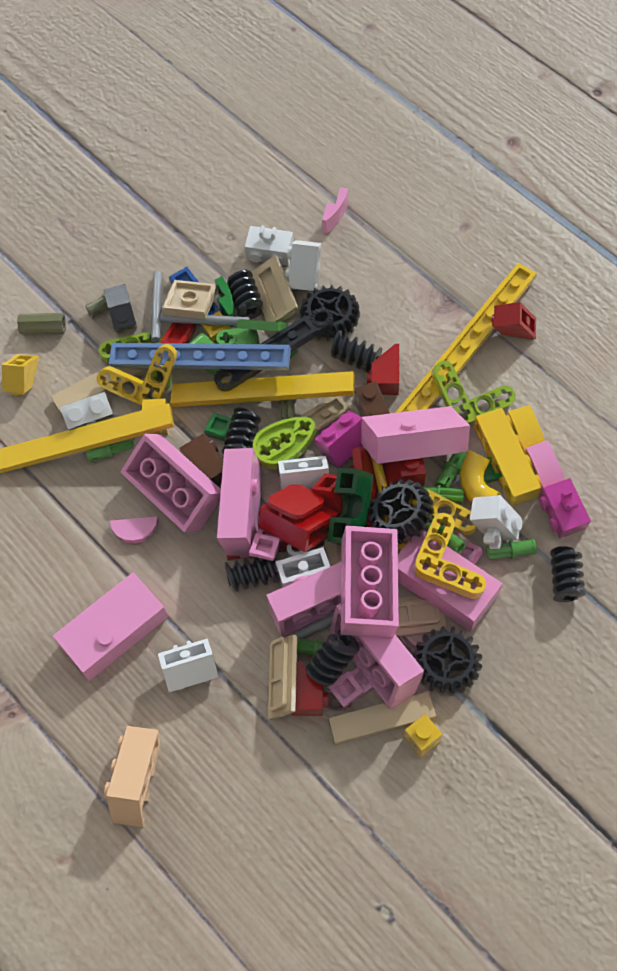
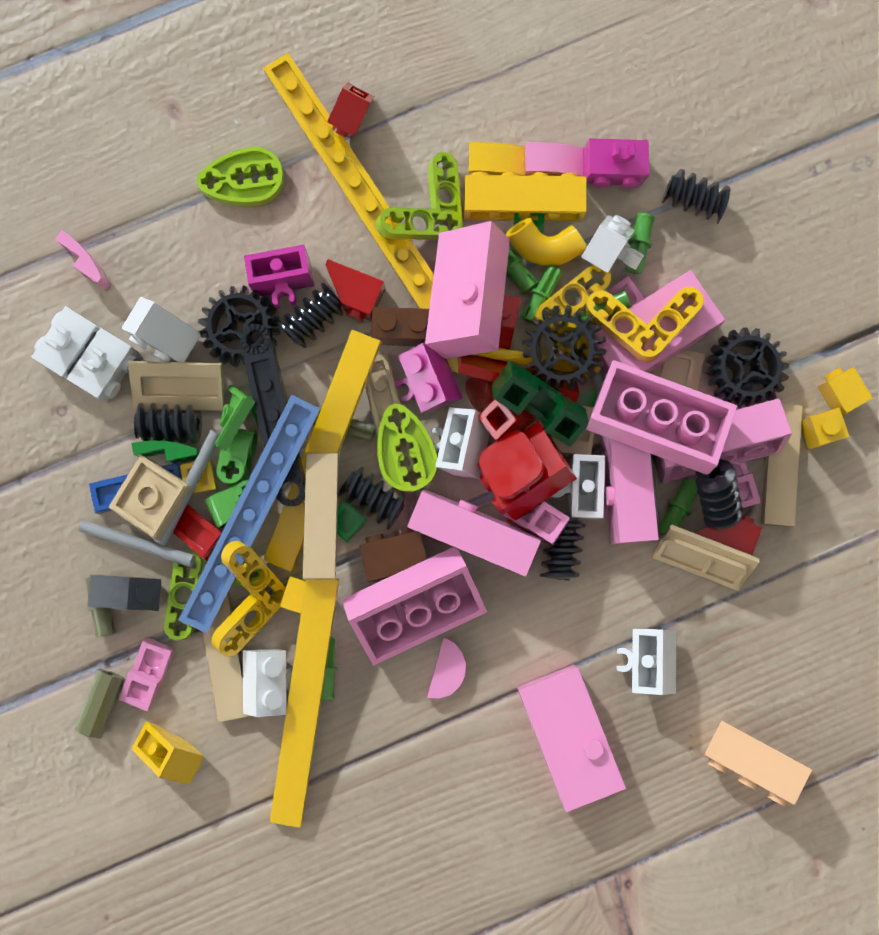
camera: 75 degrees left, 20 degrees up
(69, 345) = (147, 674): none -> bright pink slope
(212, 397) = (320, 516): none -> tan tile
(278, 216) = (64, 342): none -> white brick
(376, 320) = (279, 272): none -> dark pink brick
(439, 270) = (245, 161): none -> lime piece
(461, 743) = (844, 390): none -> yellow brick

